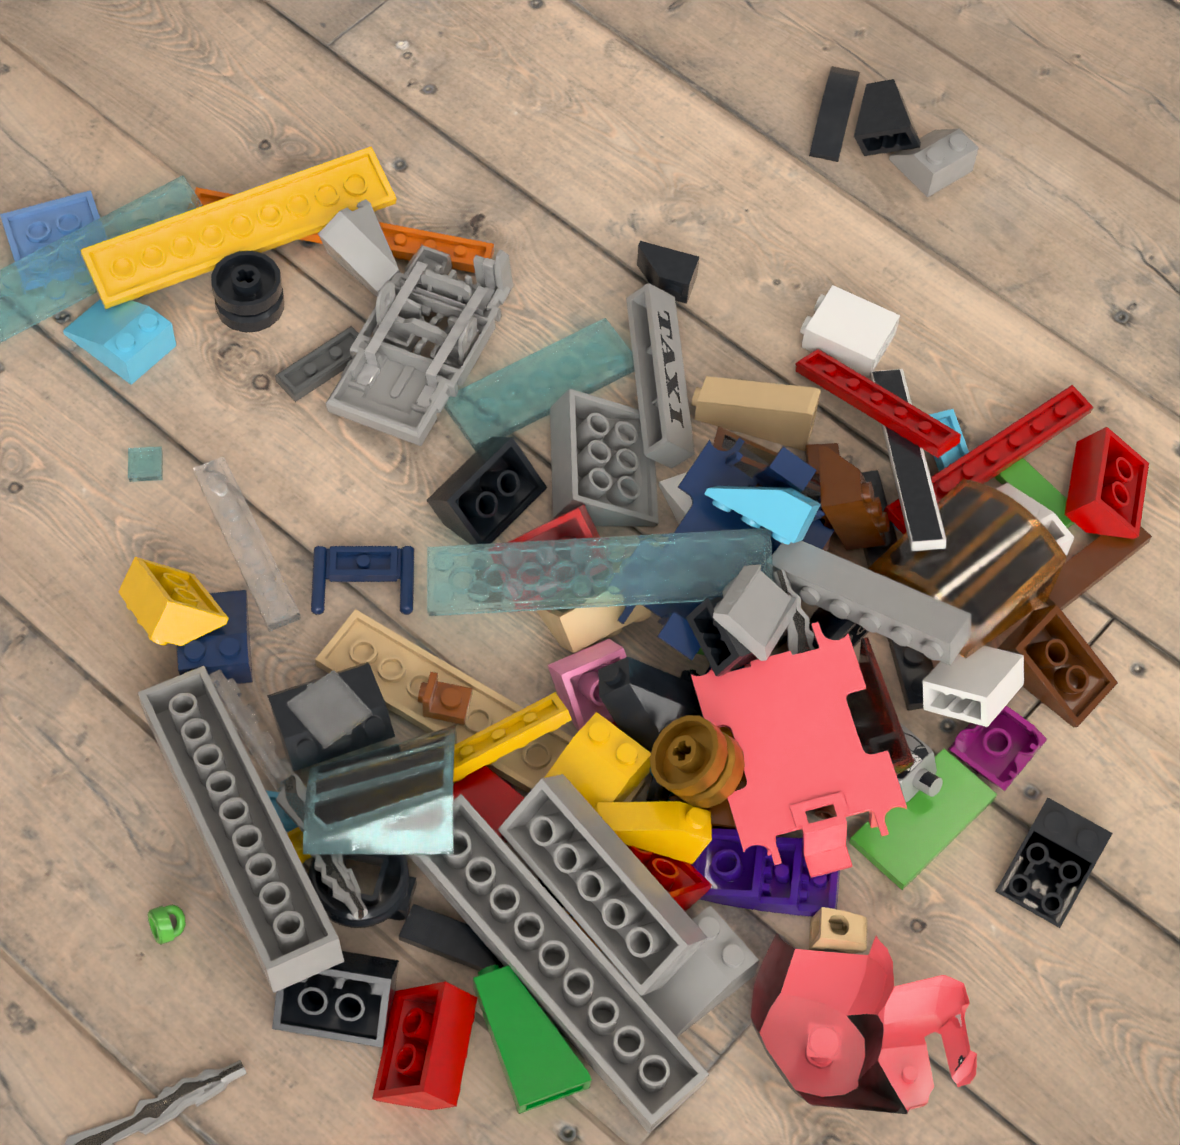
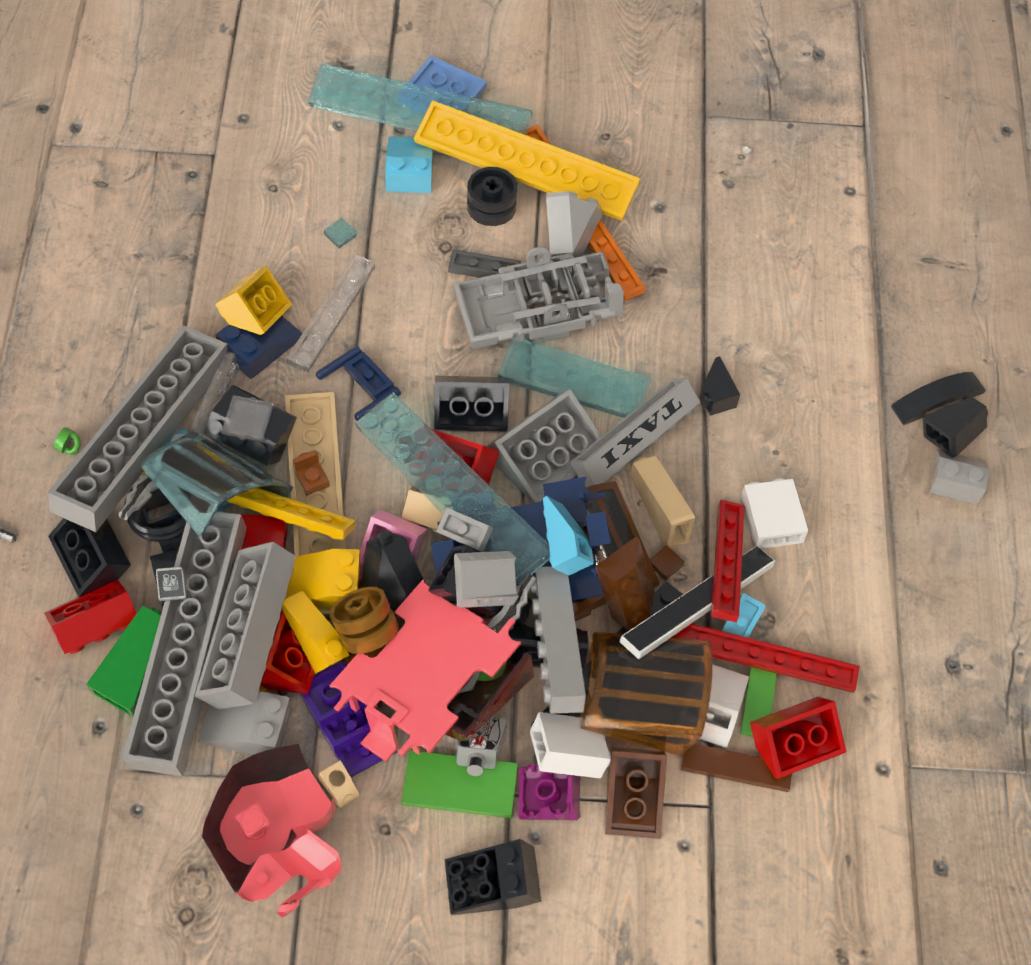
camera: 50 degrees right, 0 degrees up
(488, 924) = (171, 583): none -> slope
(675, 591) = (464, 529): none -> light grey plate

